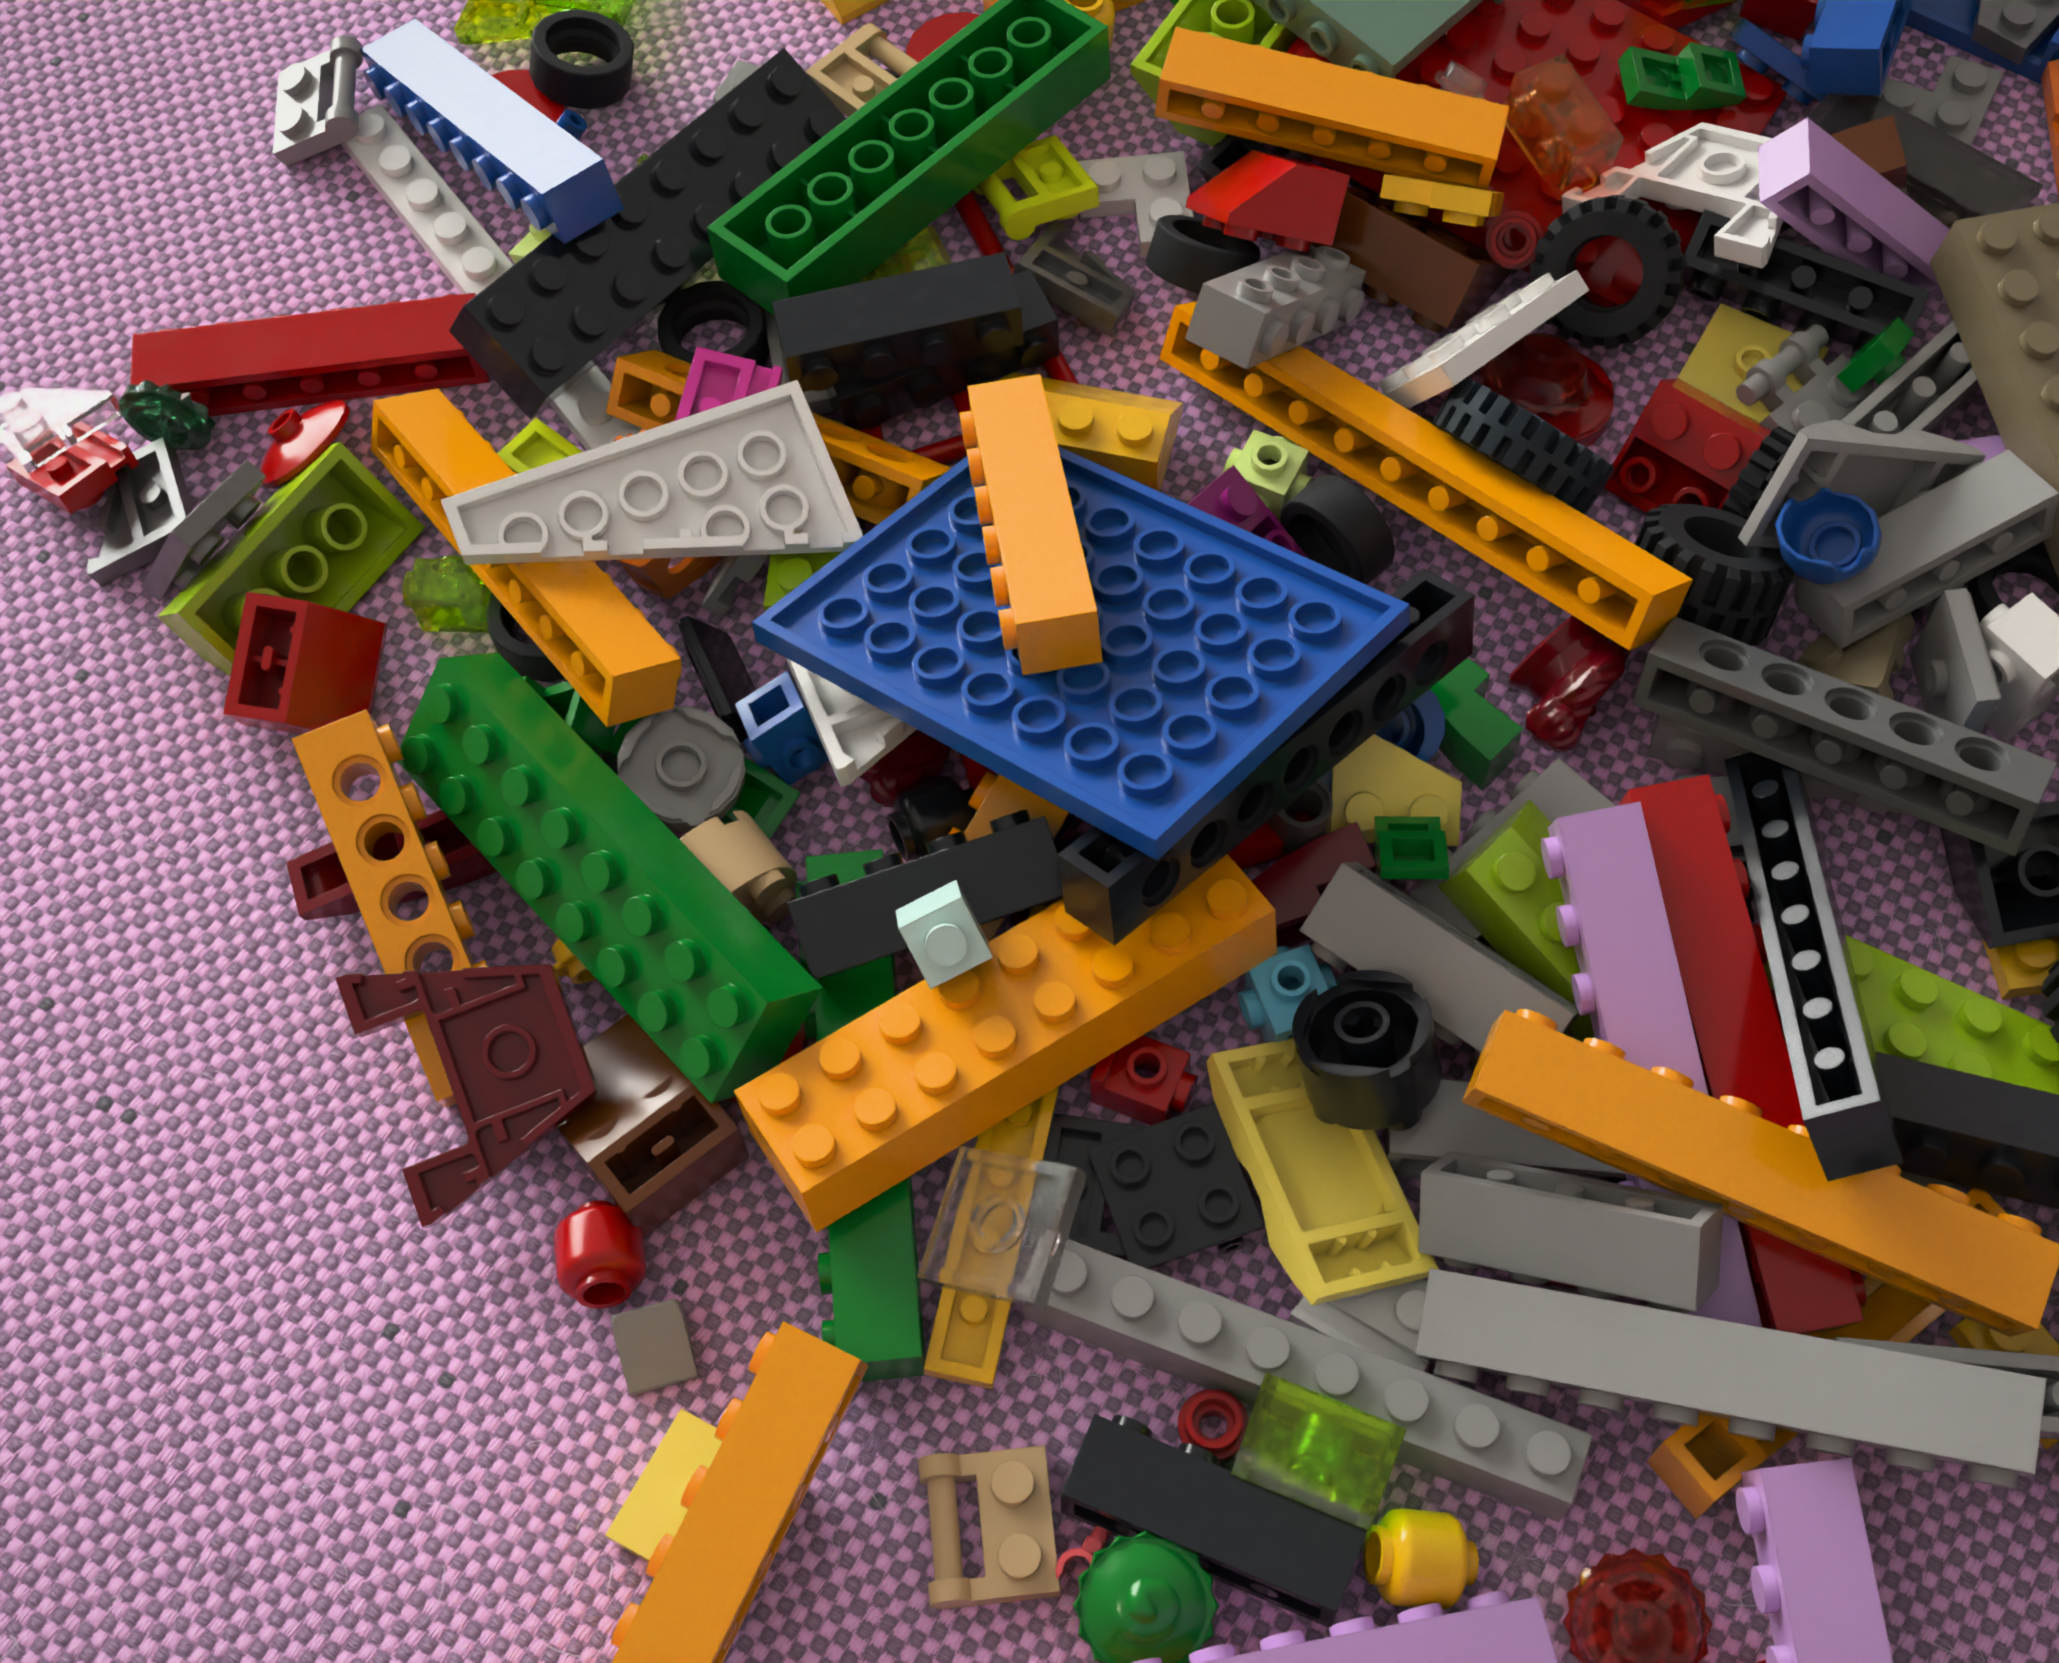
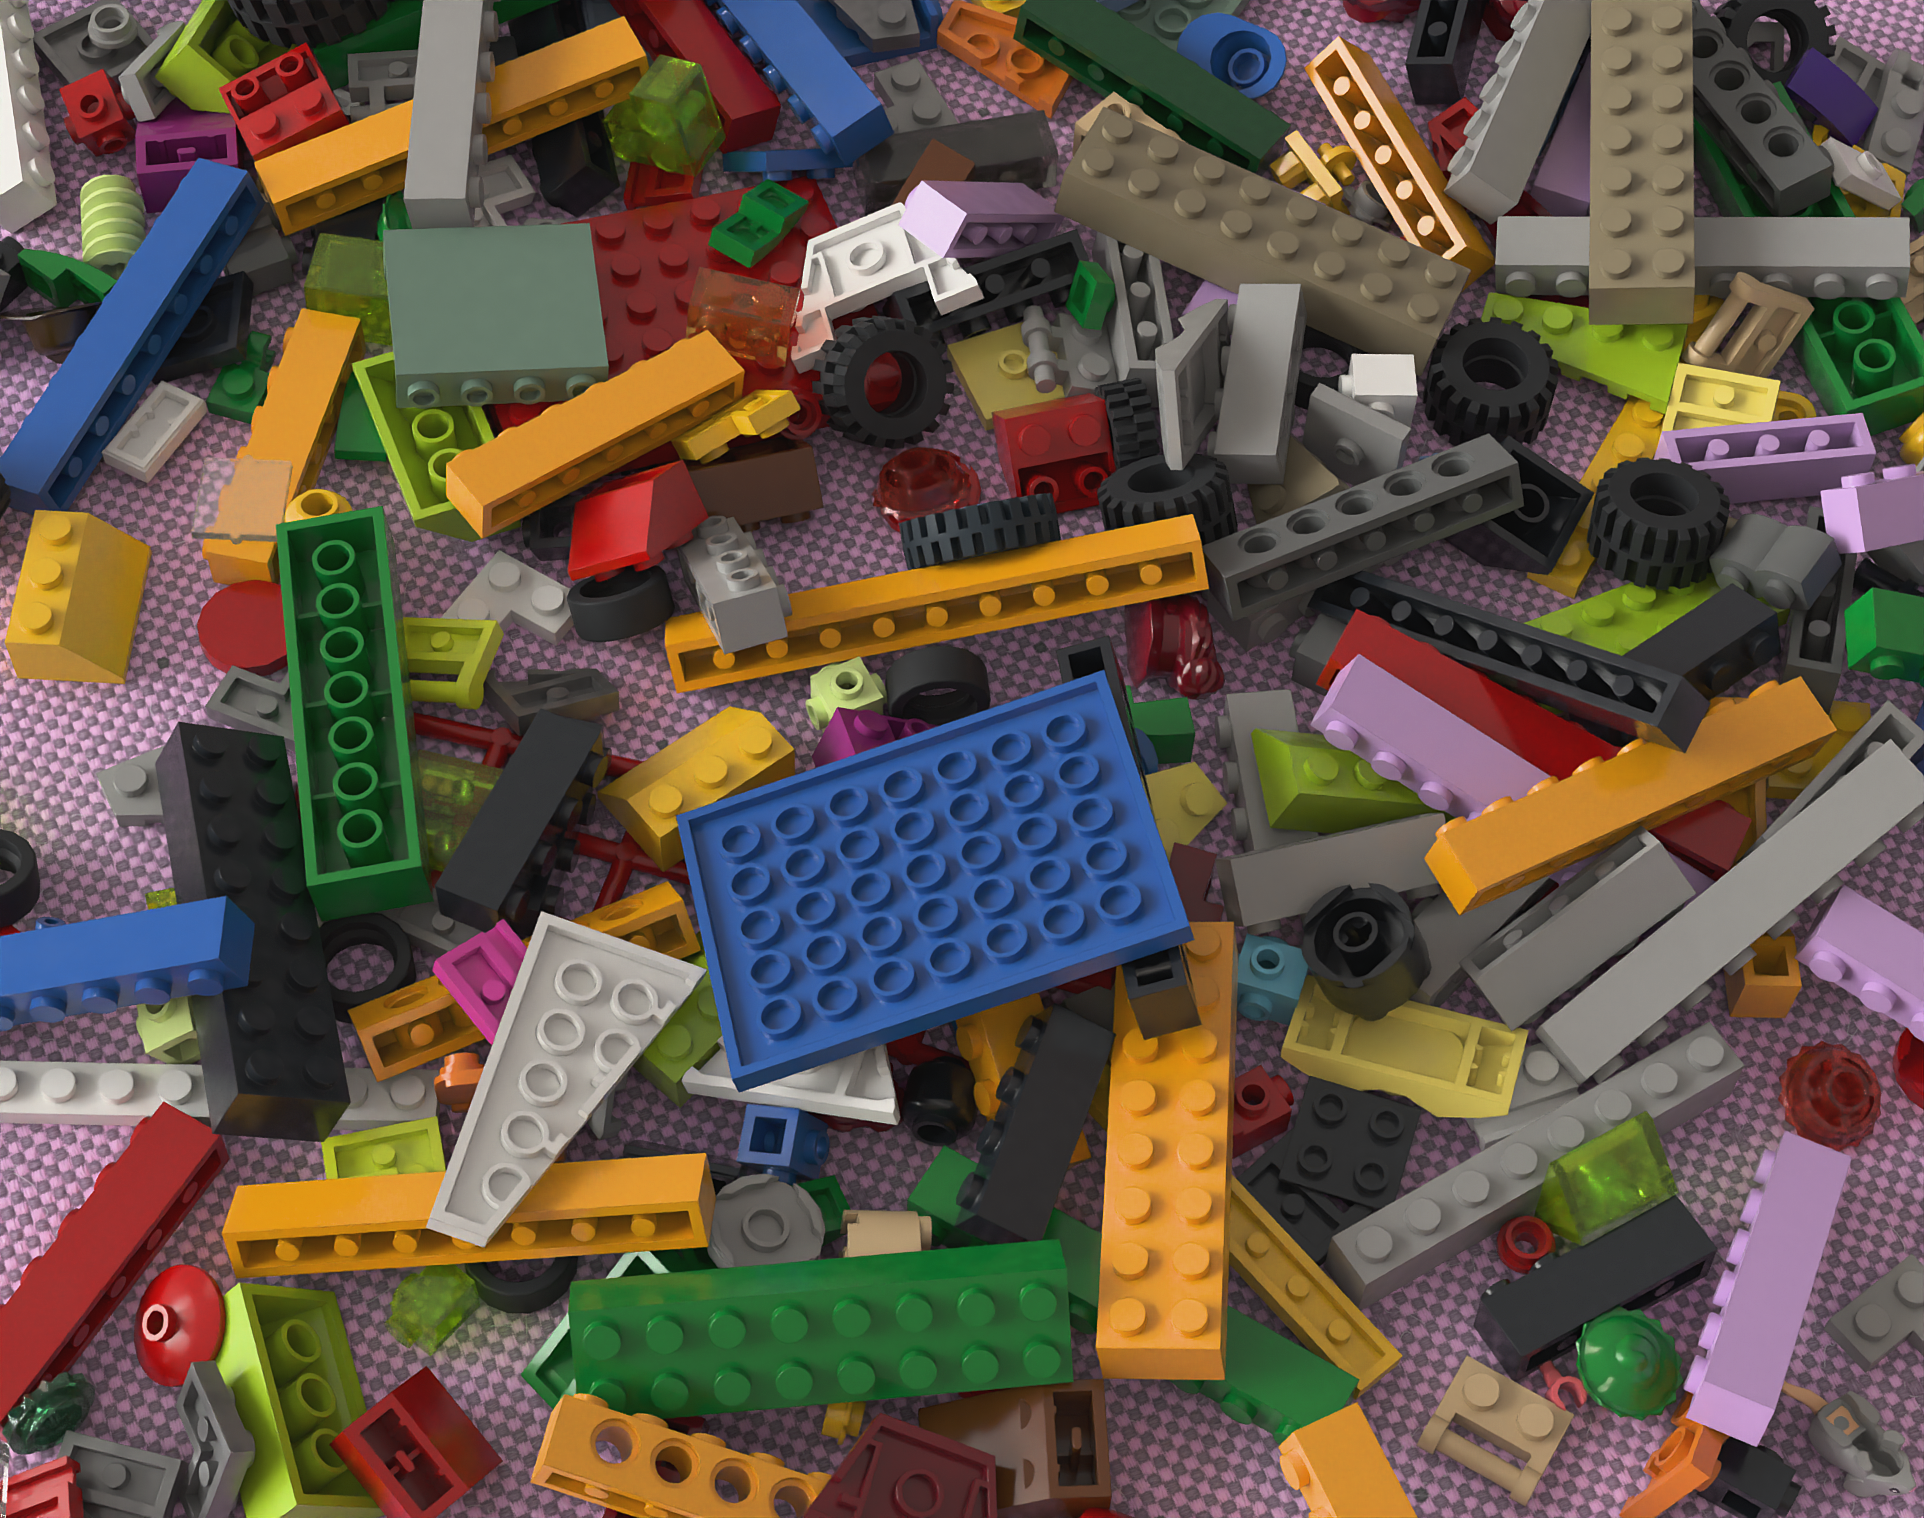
camera: 60 degrees left, 5 degrees down
(849, 74) = (243, 703): tan plate -> none
(943, 934) = (1094, 1127): light aqua brick -> none
(1002, 1226) = (1309, 1261): clear tile -> none
(1032, 527) = (820, 843): light orange brick -> none
(1410, 848) = (1230, 825): green slope -> none
(1419, 1558) = (1711, 1182): yellow head -> none
(1461, 81) = (647, 343): clear plate -> none
(1481, 339) = (876, 495): white plate -> none
(1828, 536) = (1227, 420): blue hair -> none

